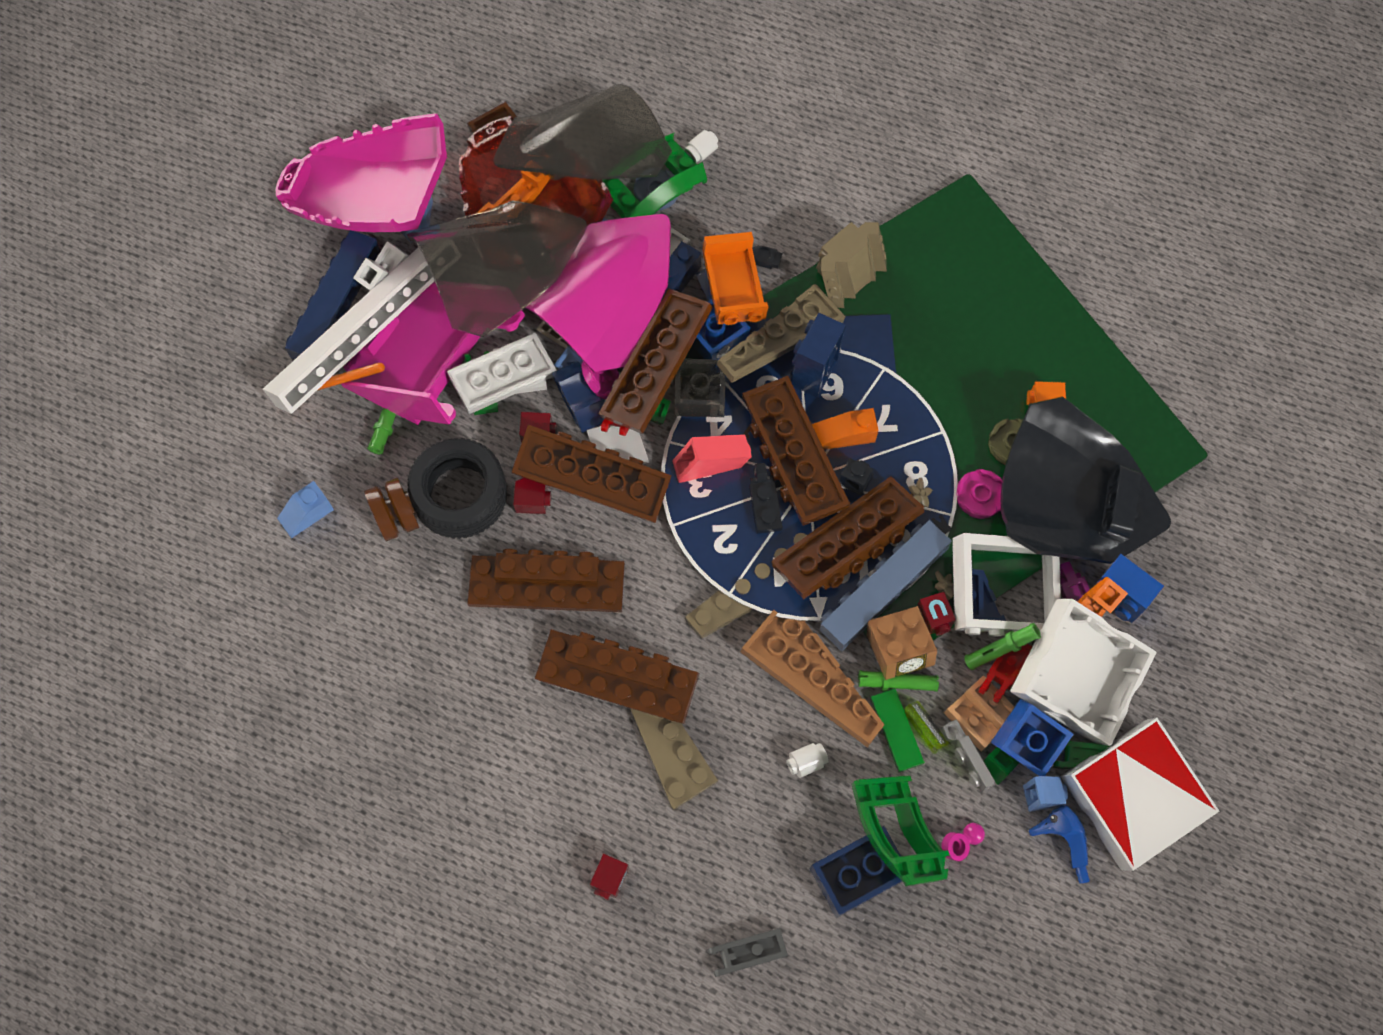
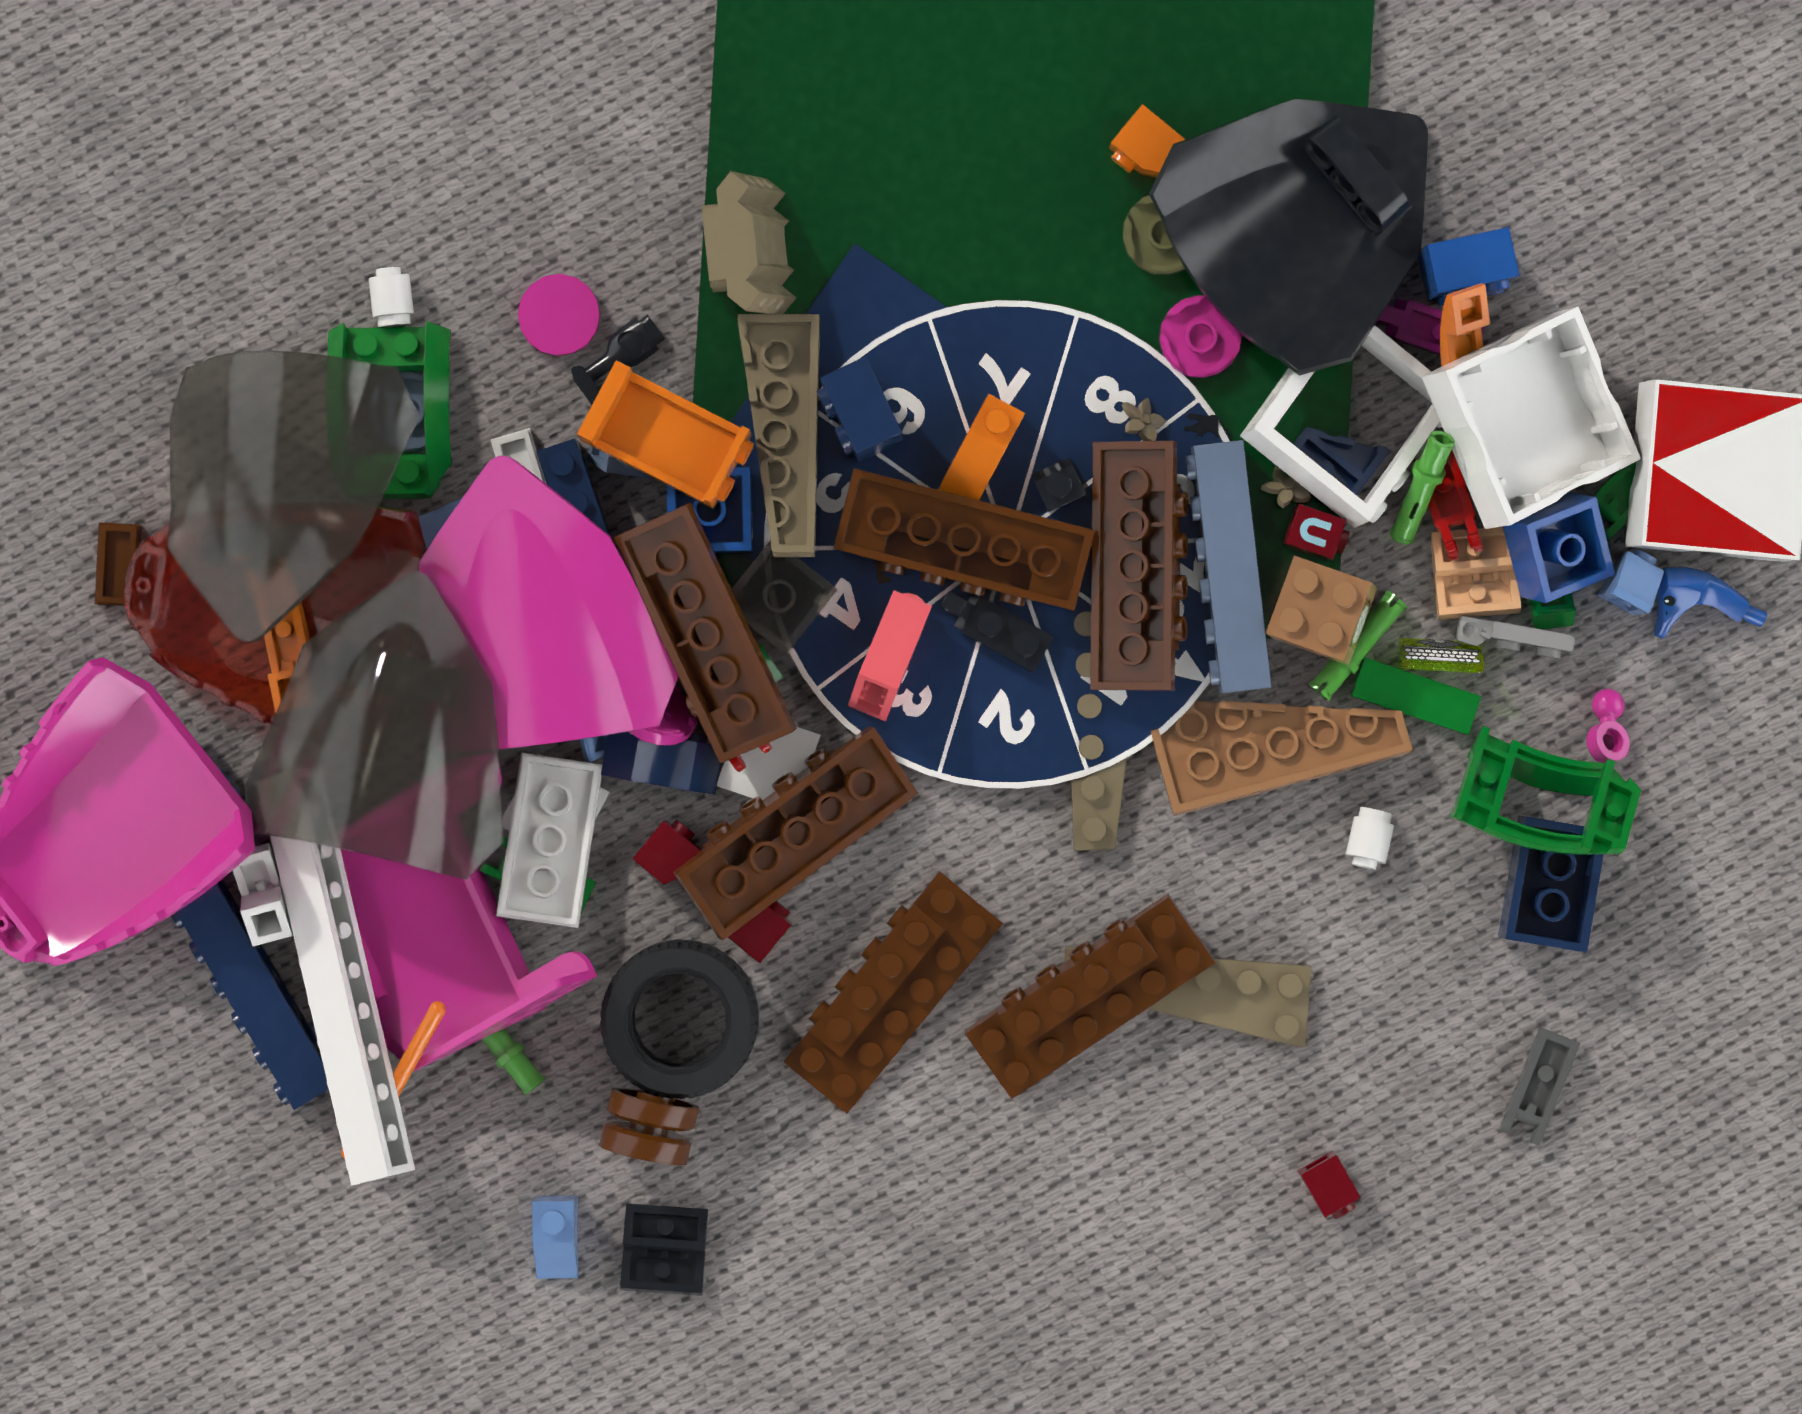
camera: 50 degrees left, 20 degrees up
(334, 567) = (664, 1249): none -> black slope
(751, 216) = (559, 315): none -> dark pink tile

